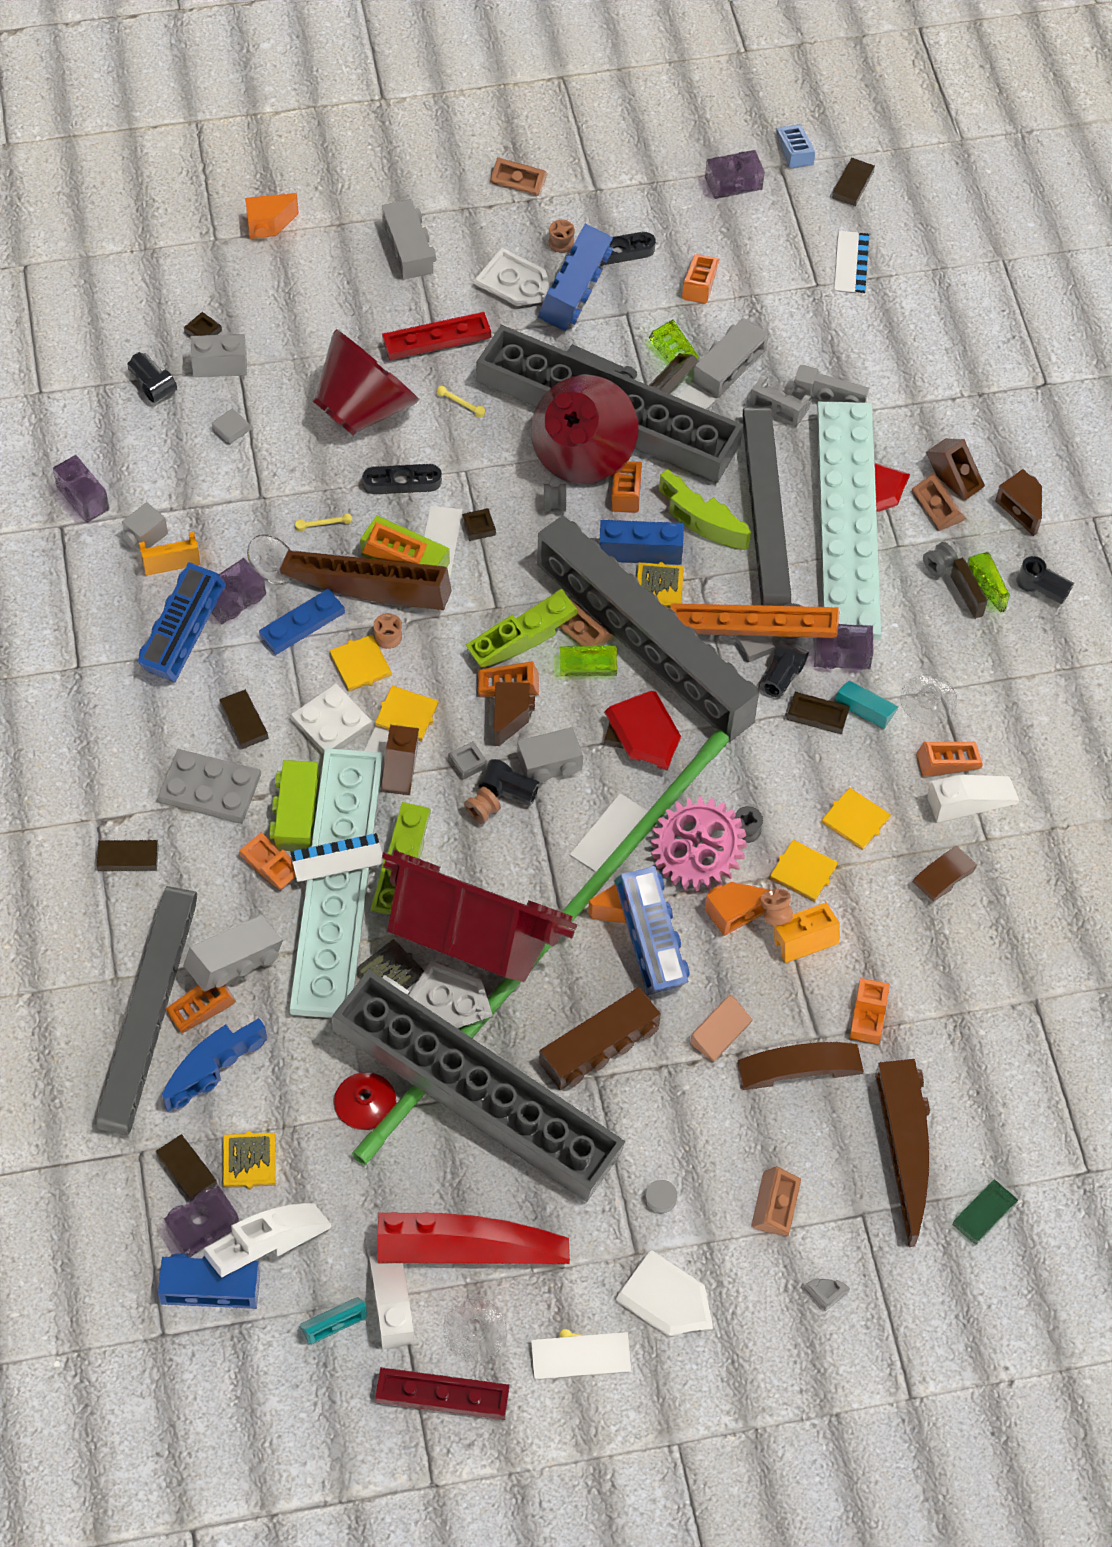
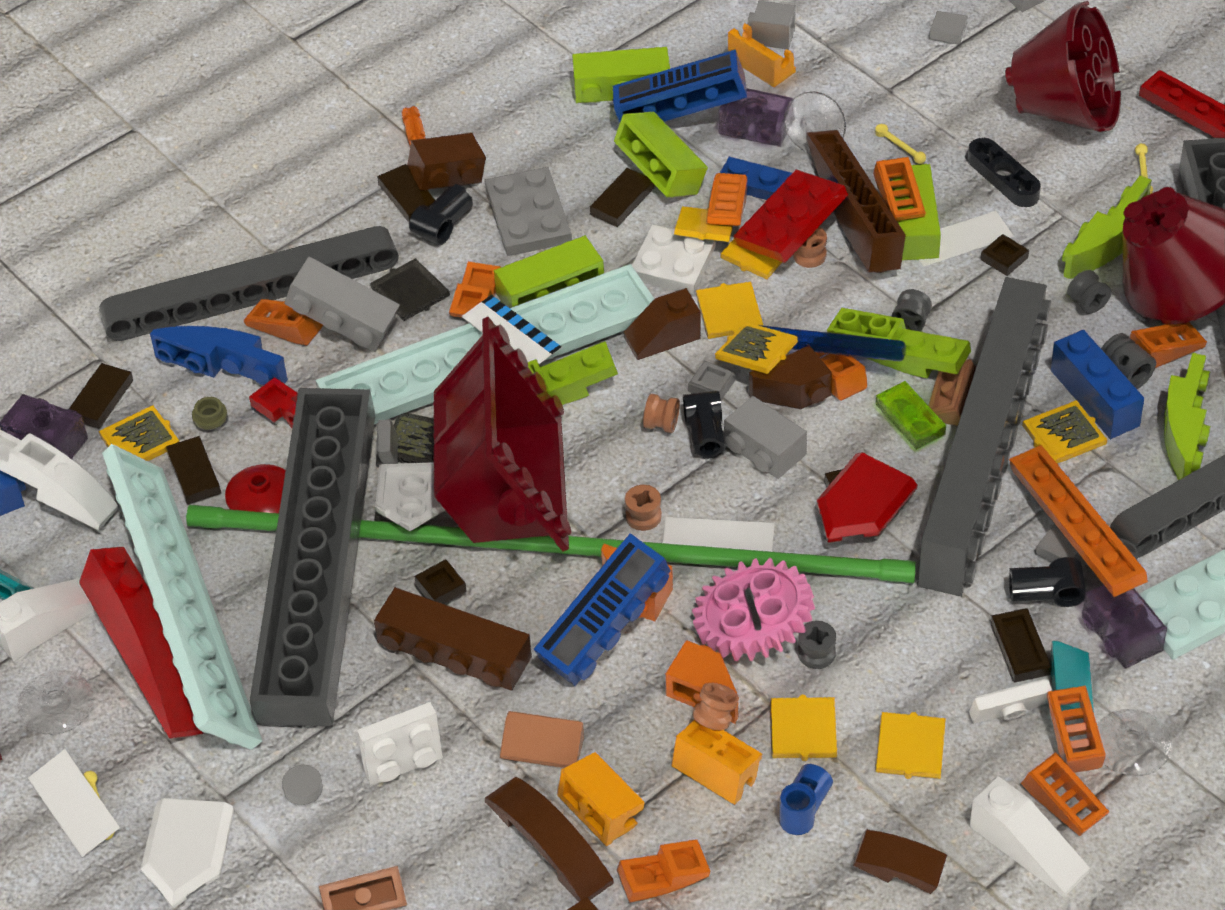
camera: 65 degrees right, 10 degrees down
(64, 817) = (413, 124): none -> orange axle
(117, 651) = (599, 71): none -> lime brick
(126, 811) = (446, 161): none -> reddish brown brick
(177, 849) = (438, 219): none -> black piece
(228, 670) = (660, 154): none -> lime brick
(229, 903) = (411, 288): none -> clear smoke piece
(261, 1091) = (209, 413): none -> olive plate
(289, 1046) = (275, 401): none -> red plate
(292, 653) = (727, 199): none -> orange slope
(312, 1136) = (193, 470): none -> dark brown tile
(318, 681) = (693, 223): none -> yellow piece
(361, 624) = (790, 215): none -> red plate
(444, 1194) = (181, 599): none -> light aqua plate
(473, 714) = (756, 347): none -> yellow piece
(491, 674) = (847, 344): none -> clear blue axle
(496, 606) = (913, 308): none -> dark grey wheel
(510, 450) = (1103, 236): none -> lime slope
(542, 1022) = (440, 582): none -> dark brown plate
(557, 869) = (647, 515): none -> nougat wheel
(628, 510) = (1129, 357): none -> dark grey piece
(685, 1113) = (400, 744): none -> white plate
(793, 1017) = (599, 798): none -> light orange hinge
(863, 896) = (806, 795): none -> blue piece
(866, 743) = (1010, 702): none -> white plate
(915, 712) = (1082, 753): none -> orange slope

